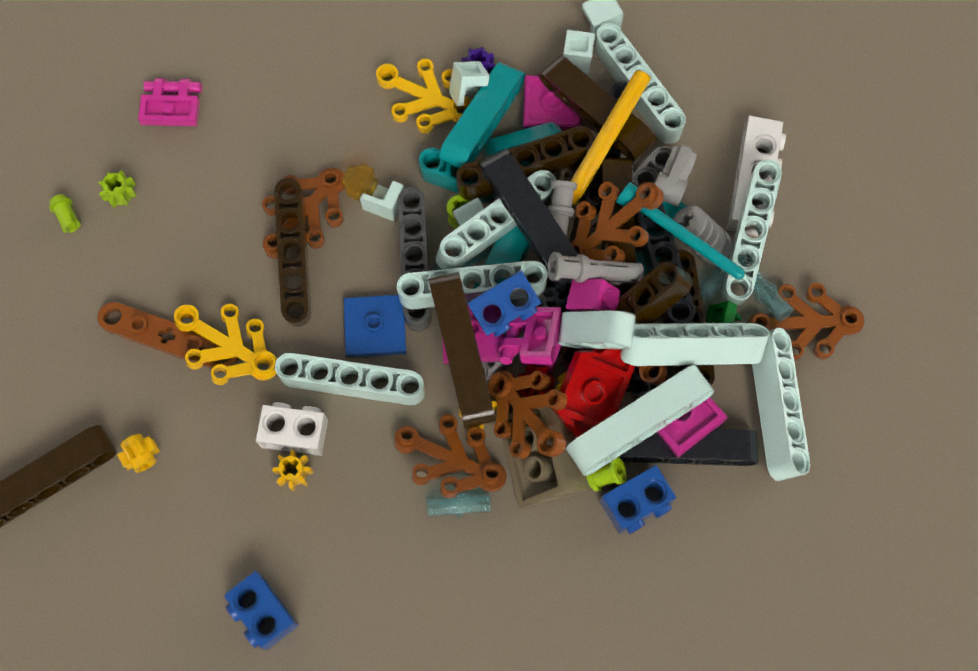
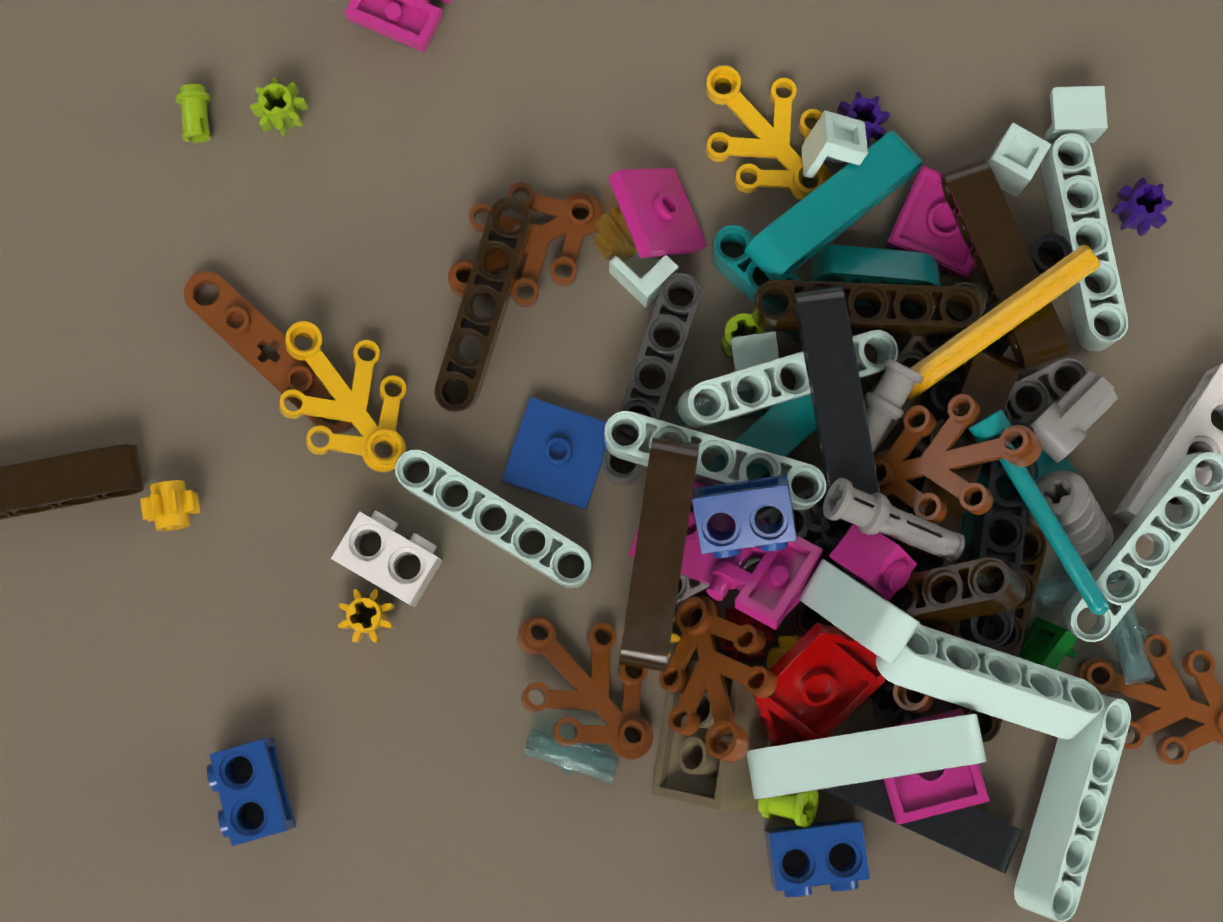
camera: 20 degrees right, 10 degrees up
(377, 159) = (657, 212): none -> dark pink plate
(663, 50) = (1148, 198): none -> dark purple gear

